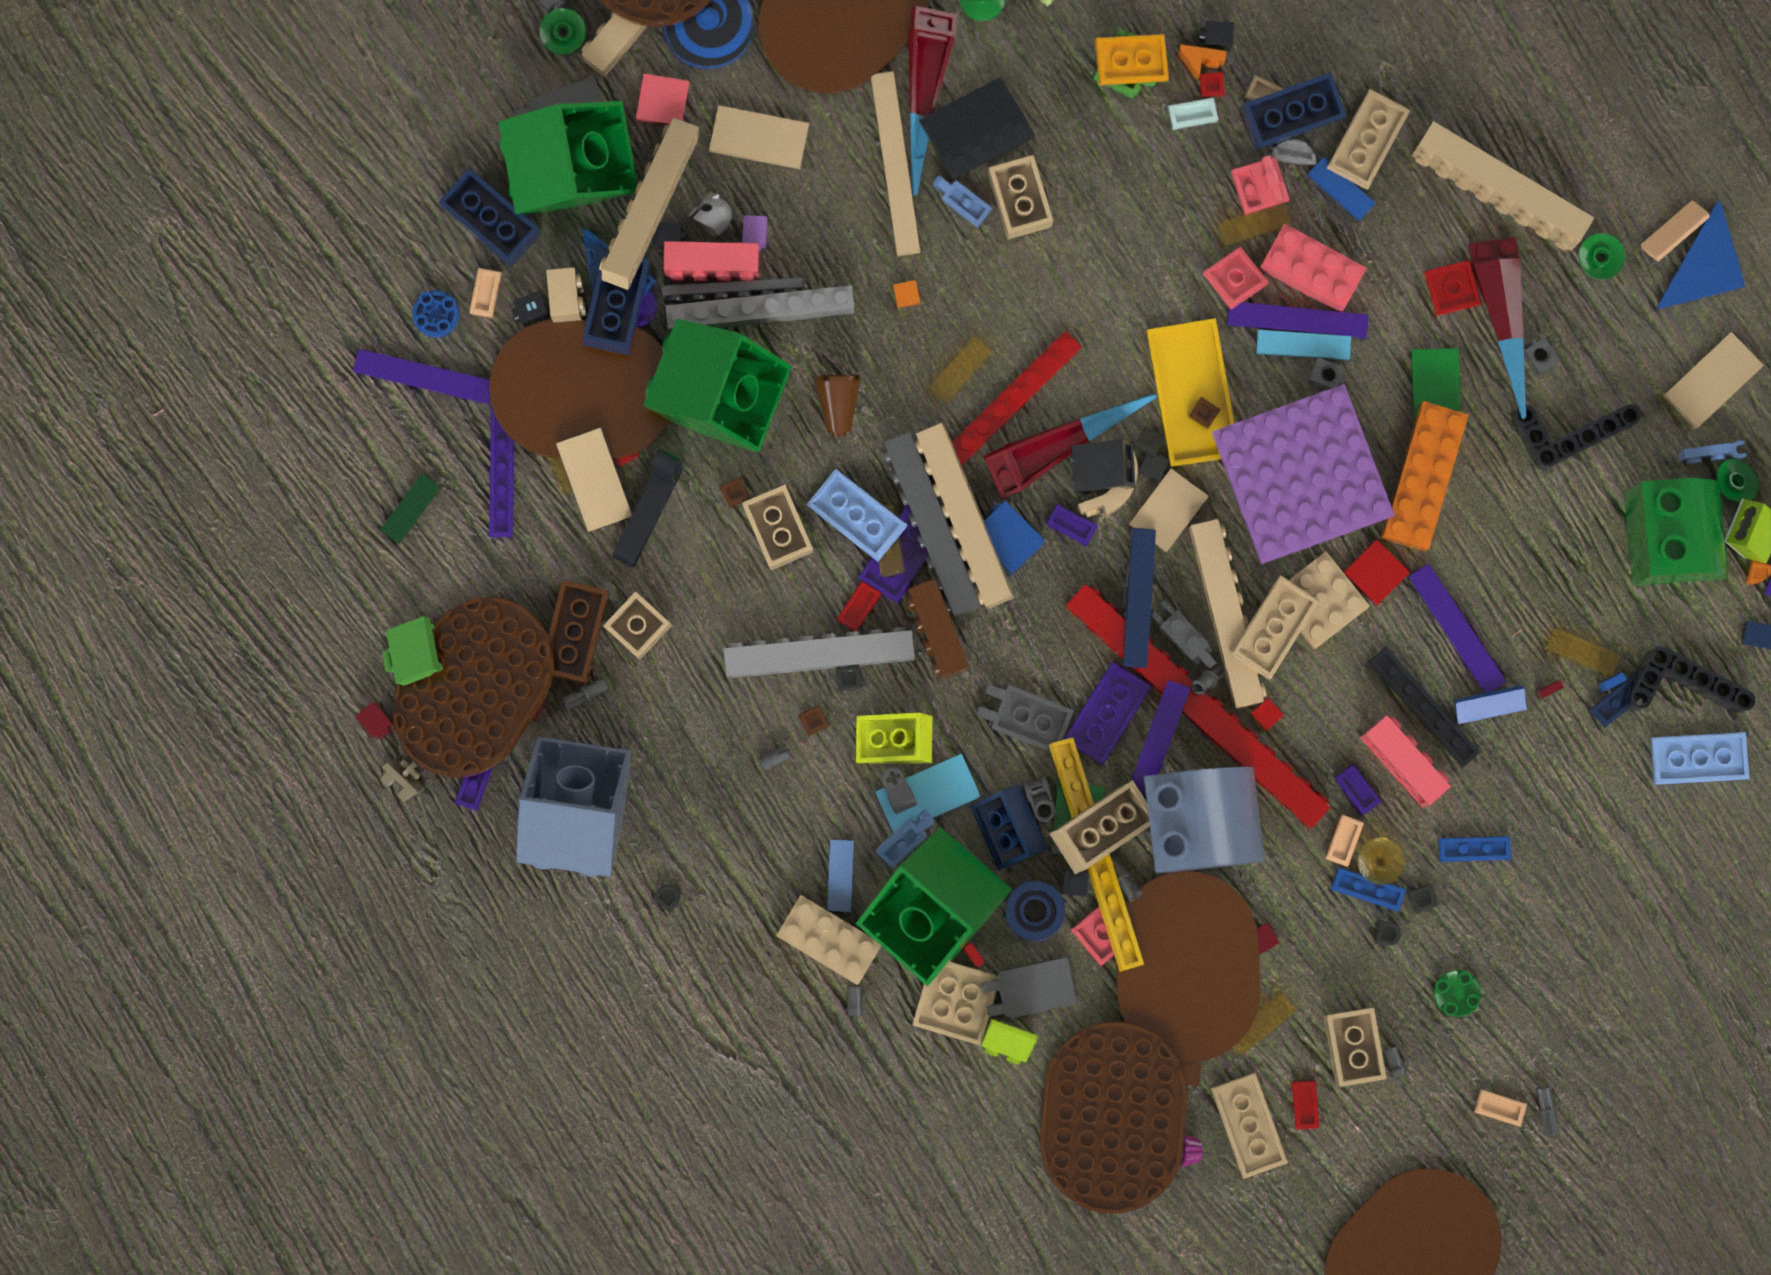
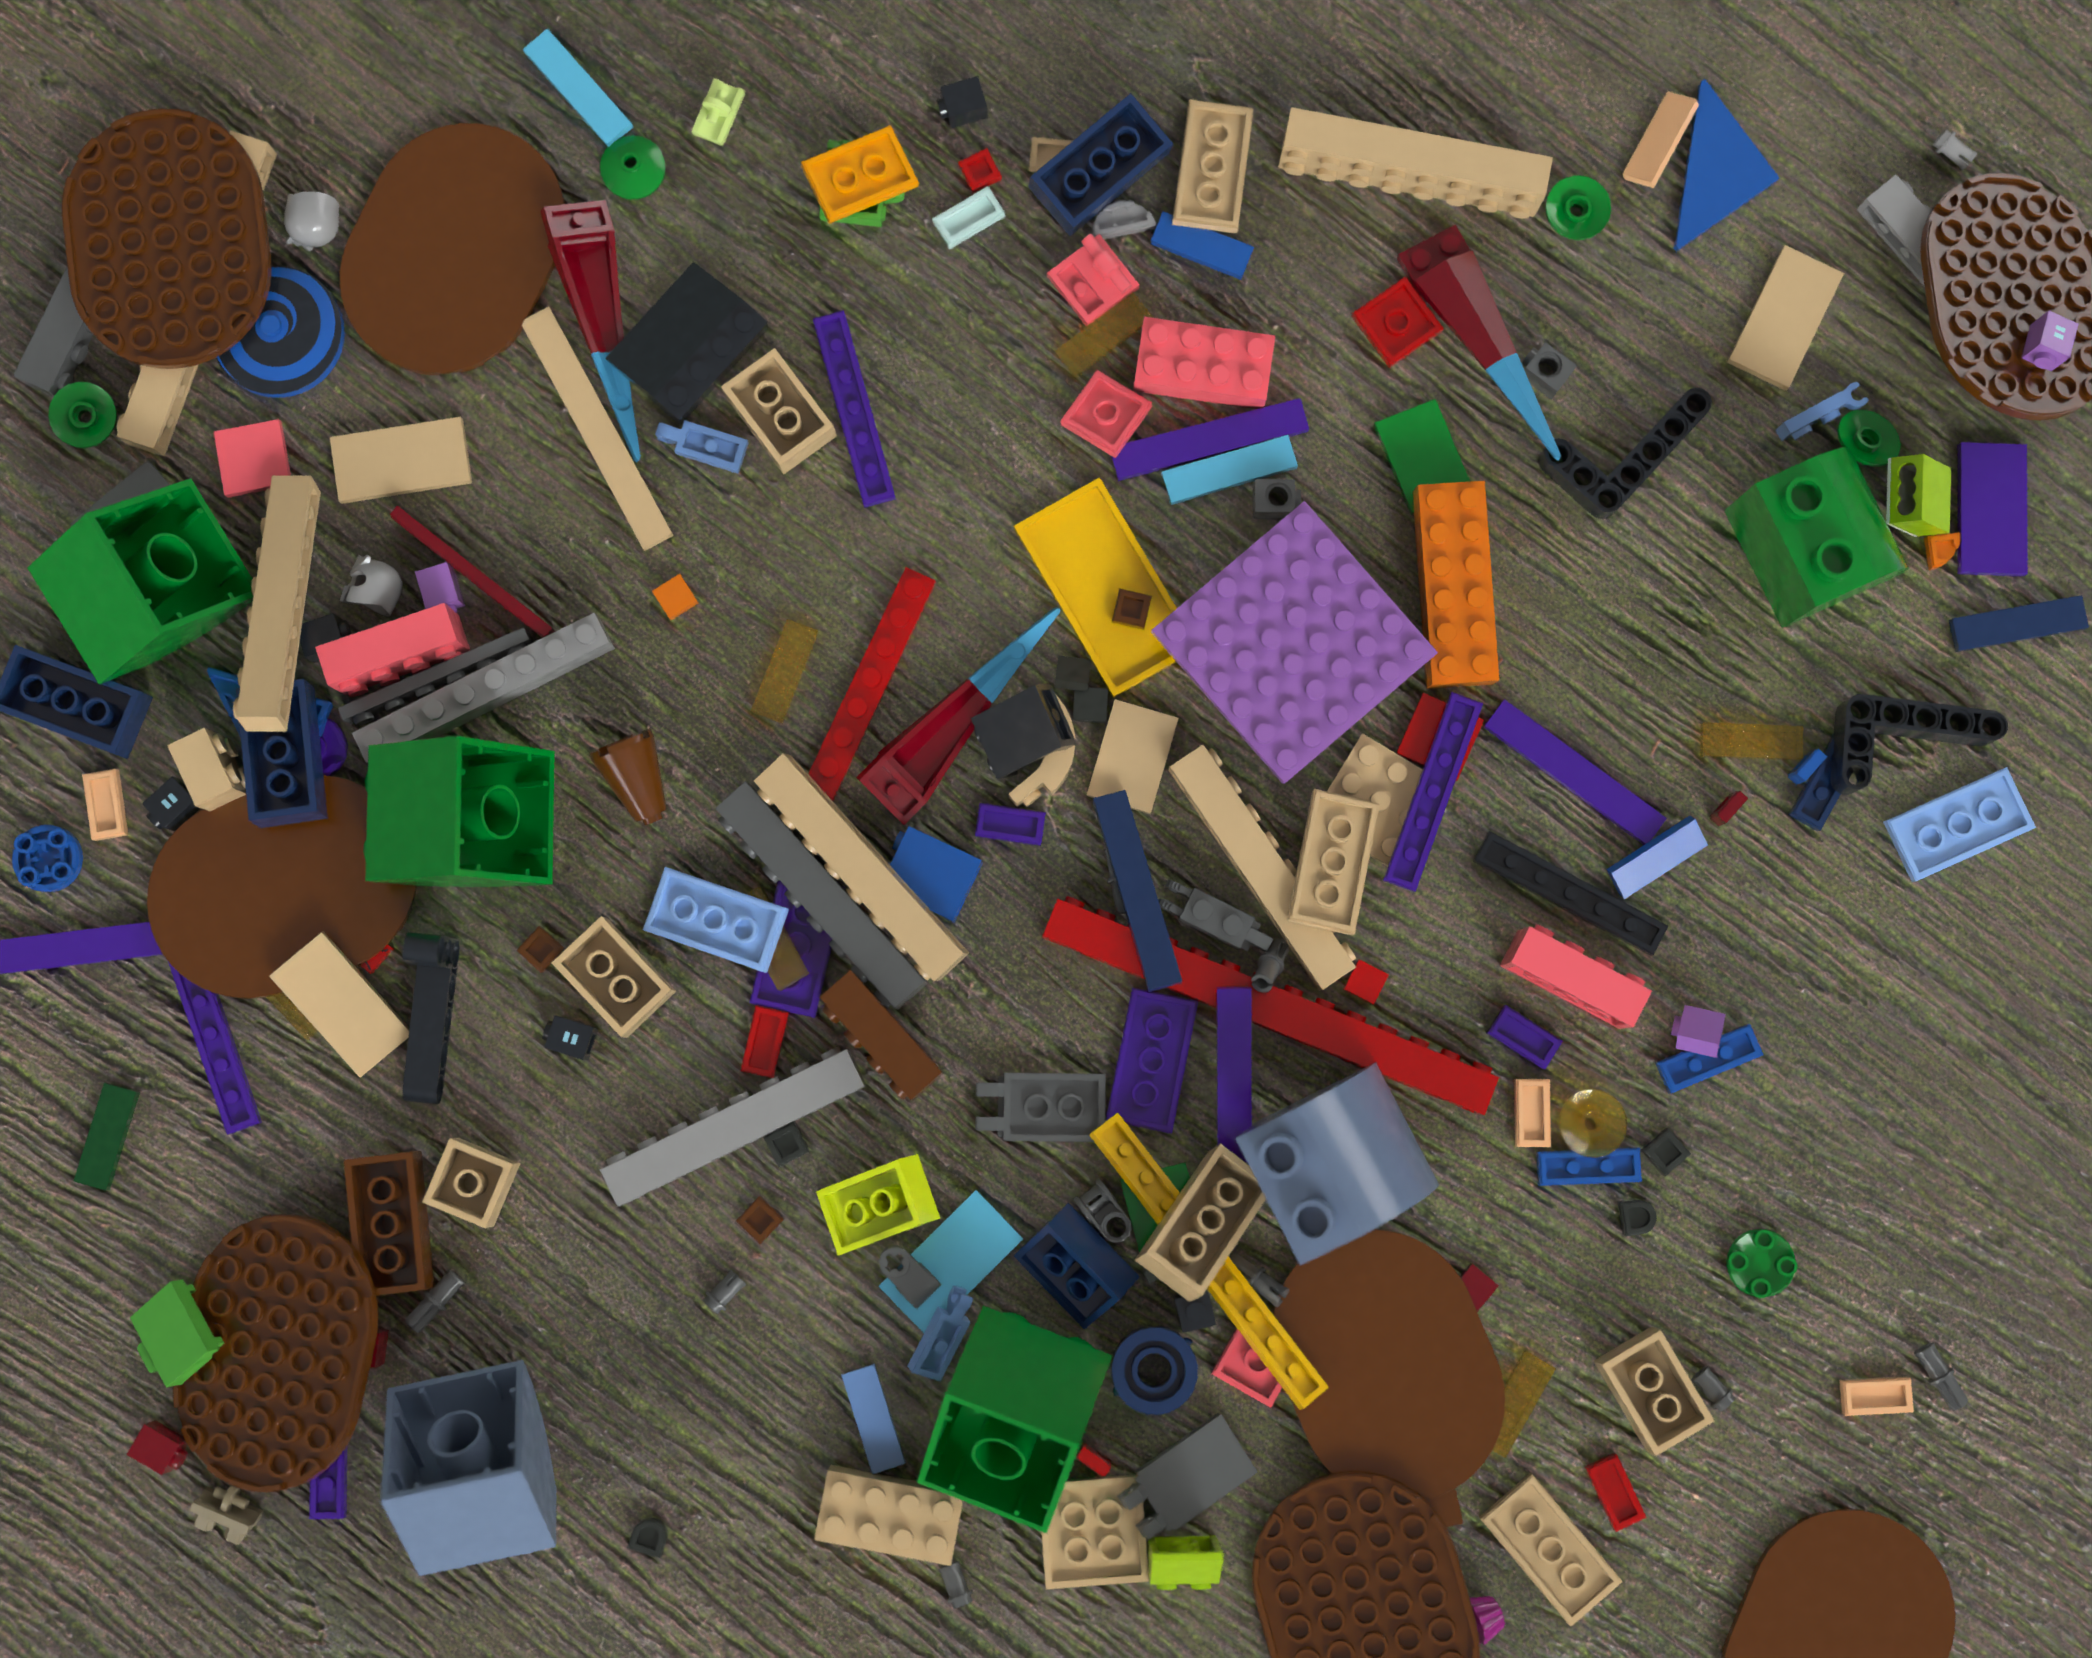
camera: 20 degrees left, 0 degrees up
(734, 556) = (569, 1037): none -> black brick
(779, 229) = (471, 572): none -> dark red tile
(1069, 213) = (854, 409): none -> dark purple tile
(1194, 56) = (943, 139): orange slope -> none
(1357, 606) = (1432, 792): none -> dark purple tile
(1473, 827) = (1698, 1030): none -> medium lavender brick

